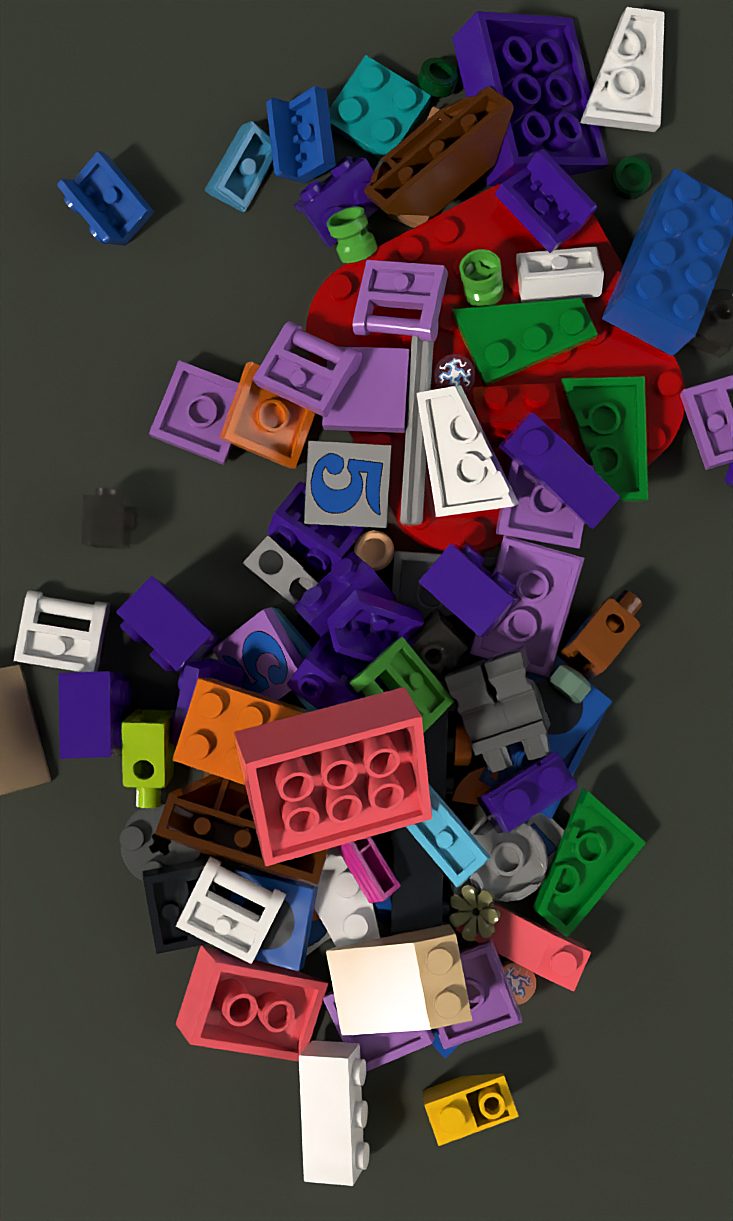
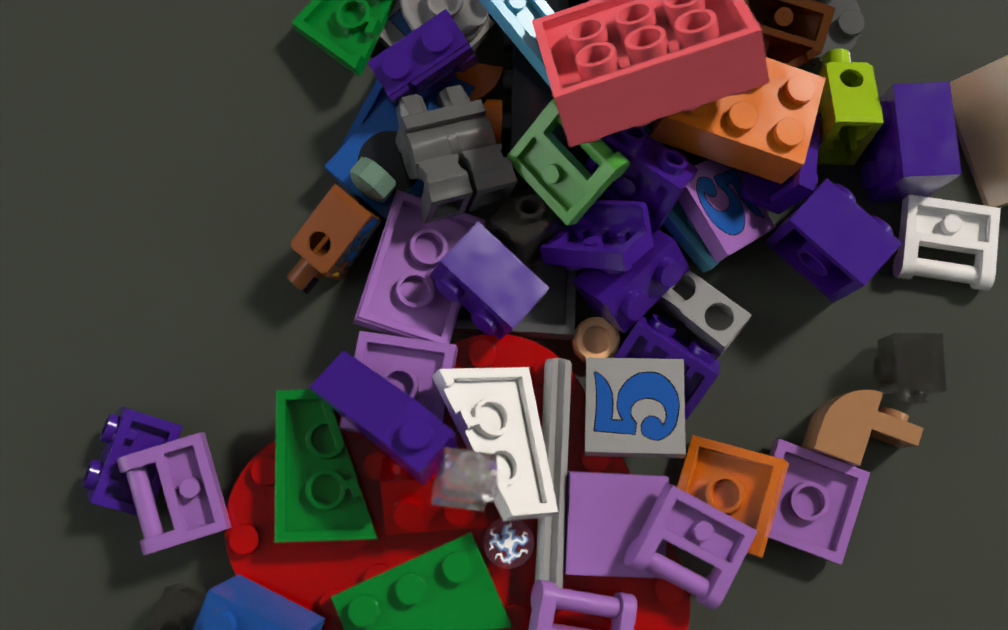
camera: 170 degrees right, 5 degrees down
(165, 477) = (847, 421): none -> medium nougat brick
(493, 411) = (465, 479): none -> clear bracket

